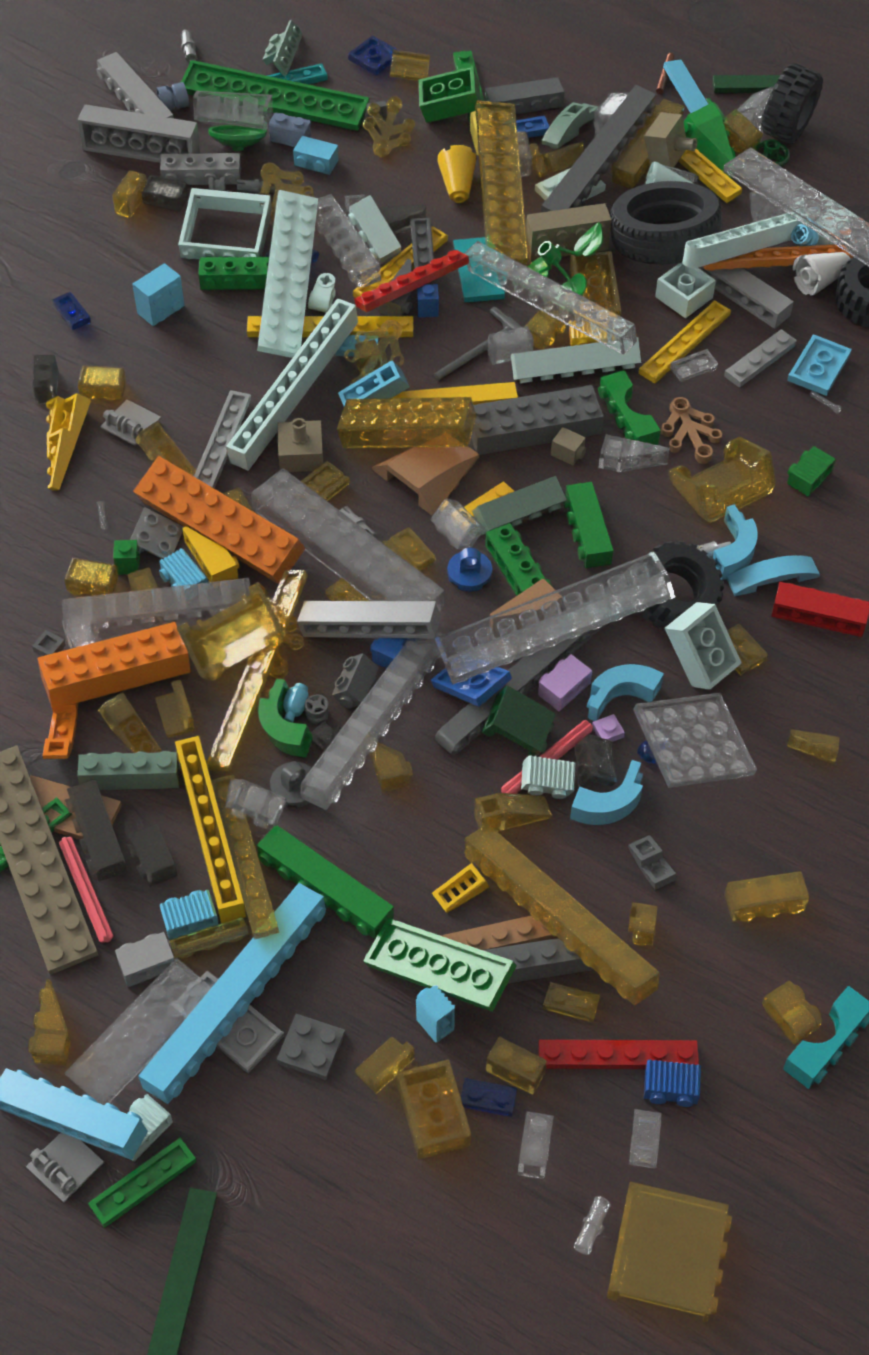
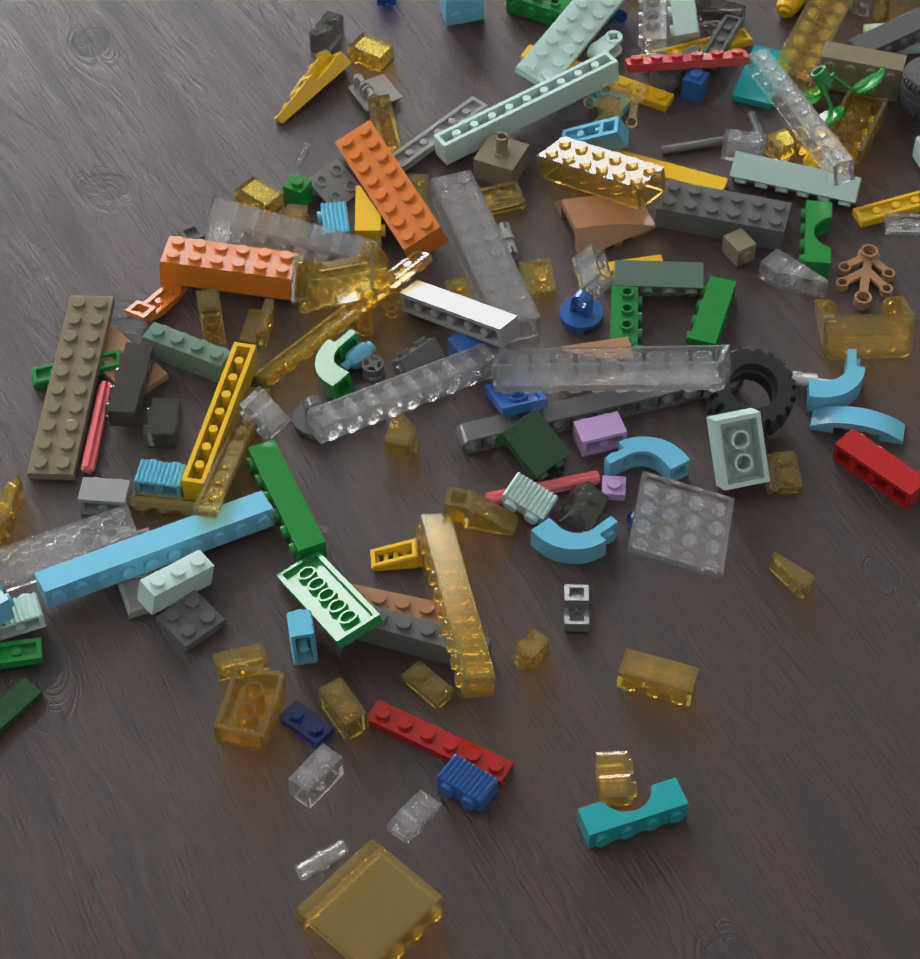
camera: 30 degrees right, 5 degrees down
(277, 1016) = (175, 582): none -> light aqua brick

